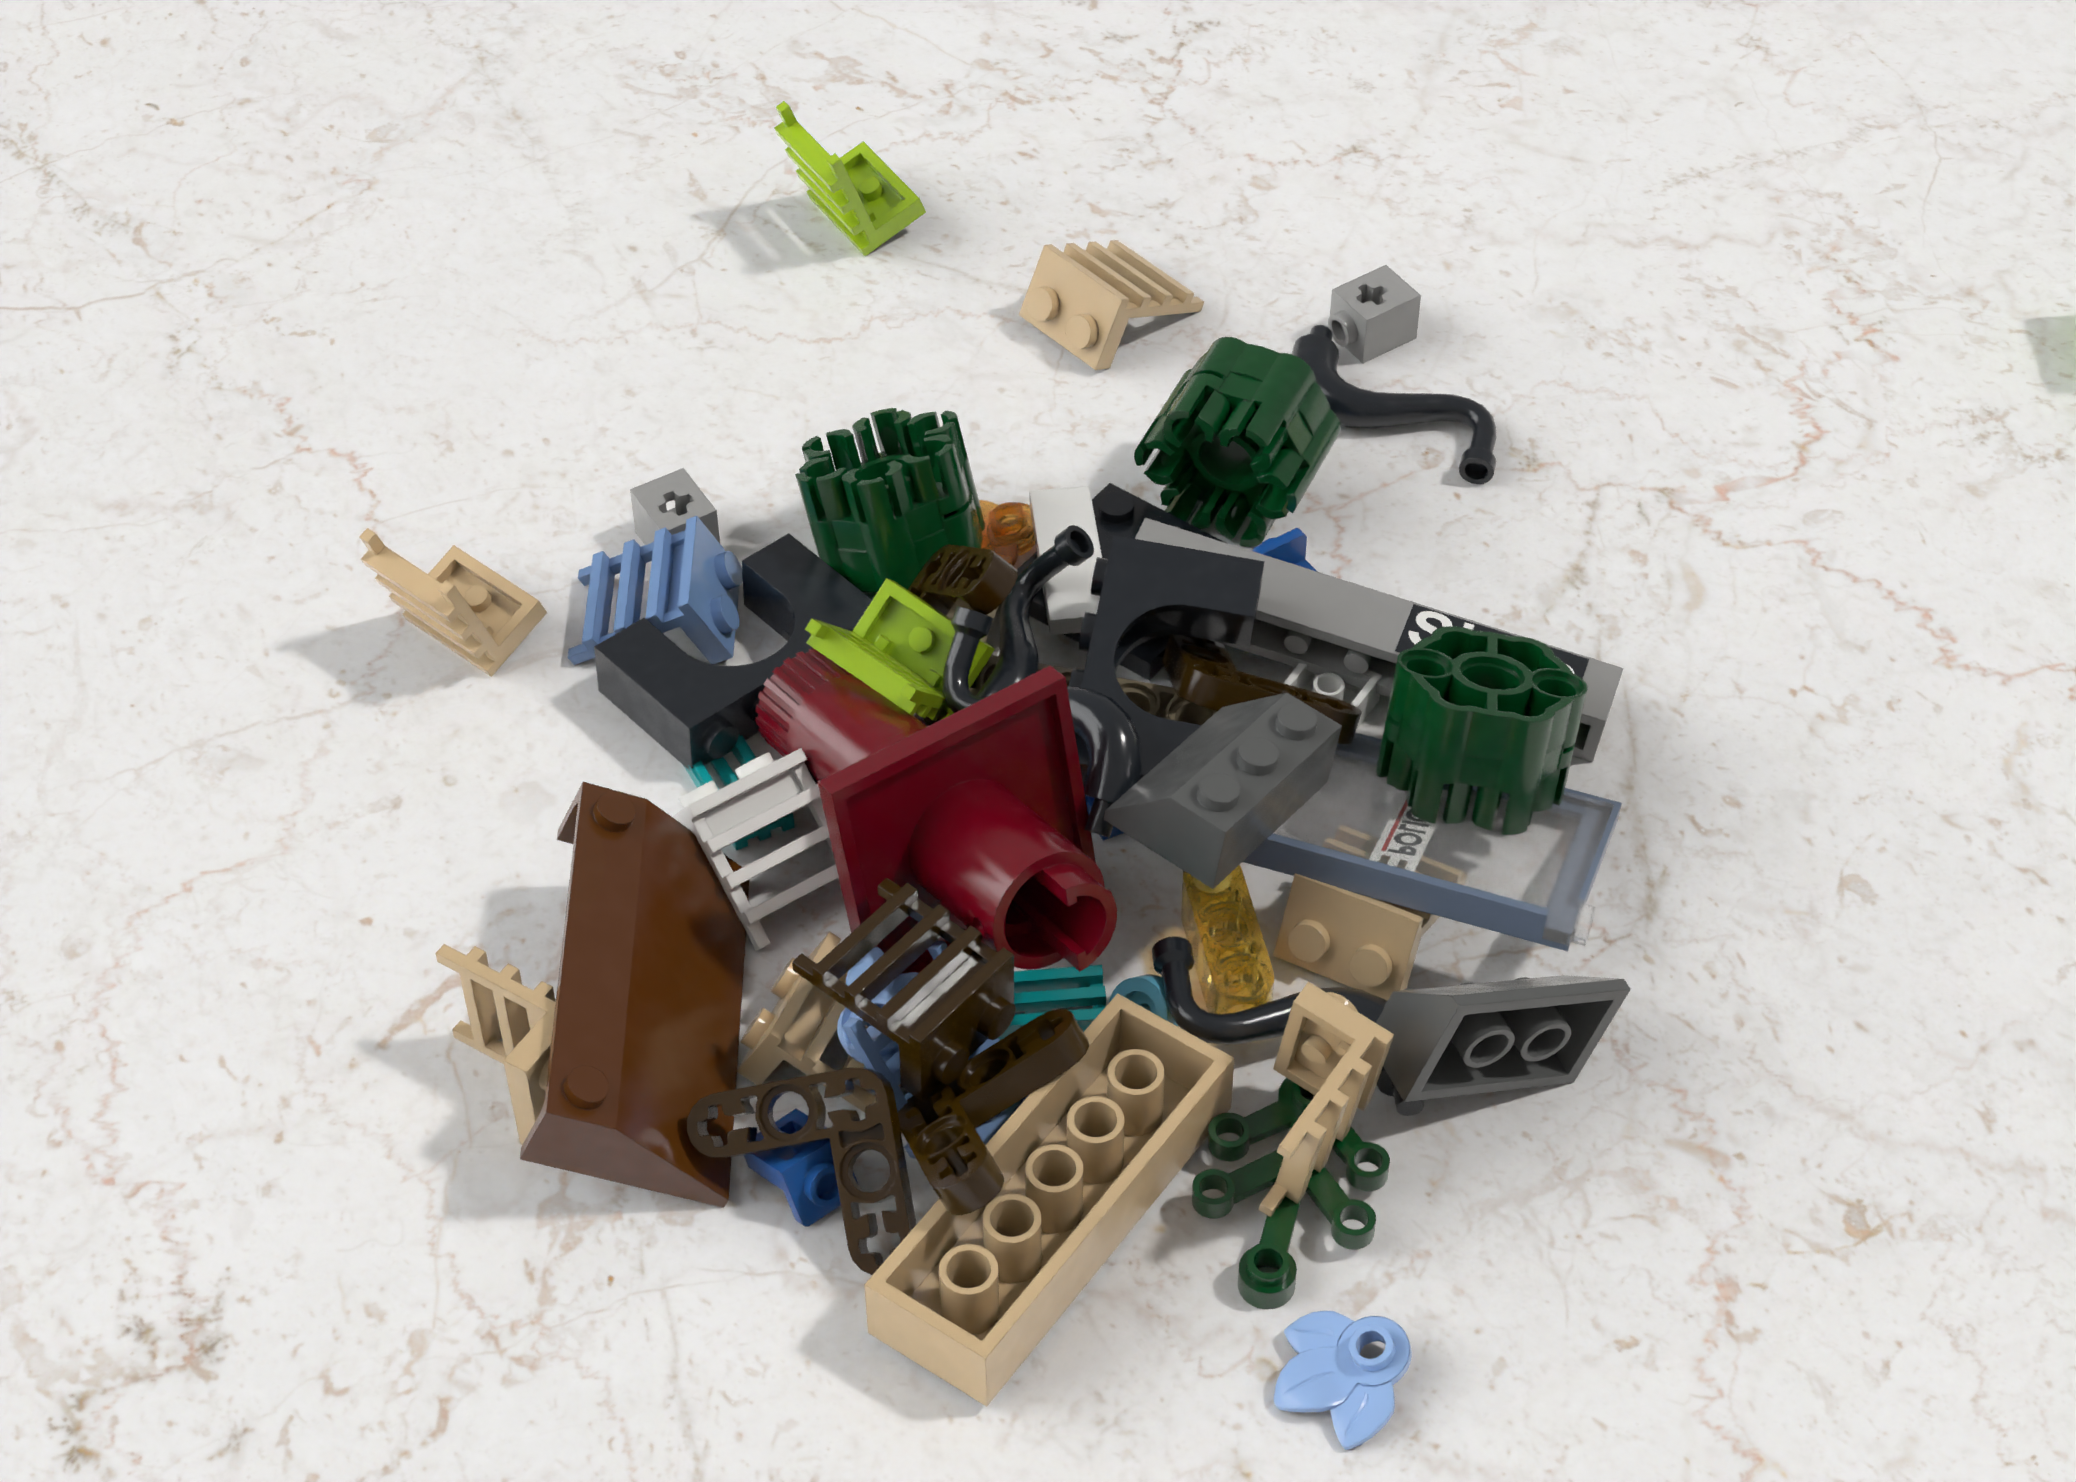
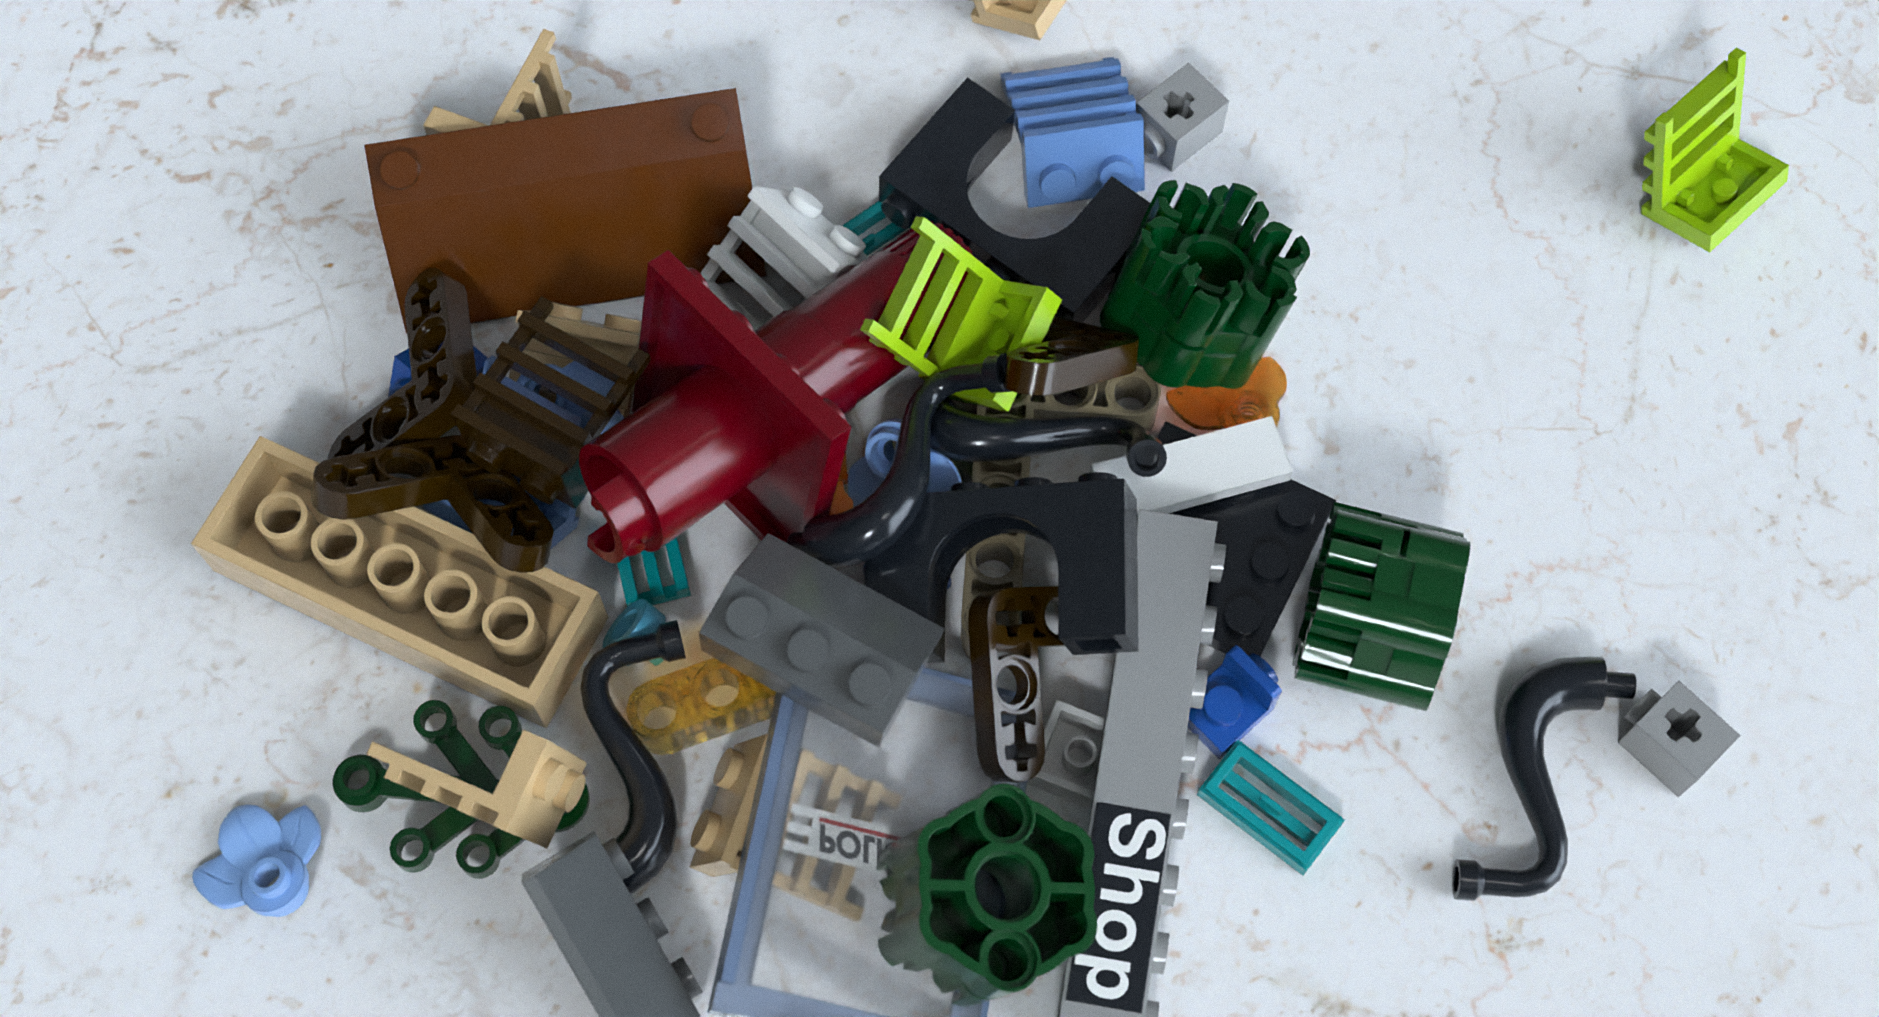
camera: 80 degrees right, 20 degrees up
(1091, 293) = (1599, 430): tan plate -> none
(1410, 580) = (1256, 827): none -> teal tile

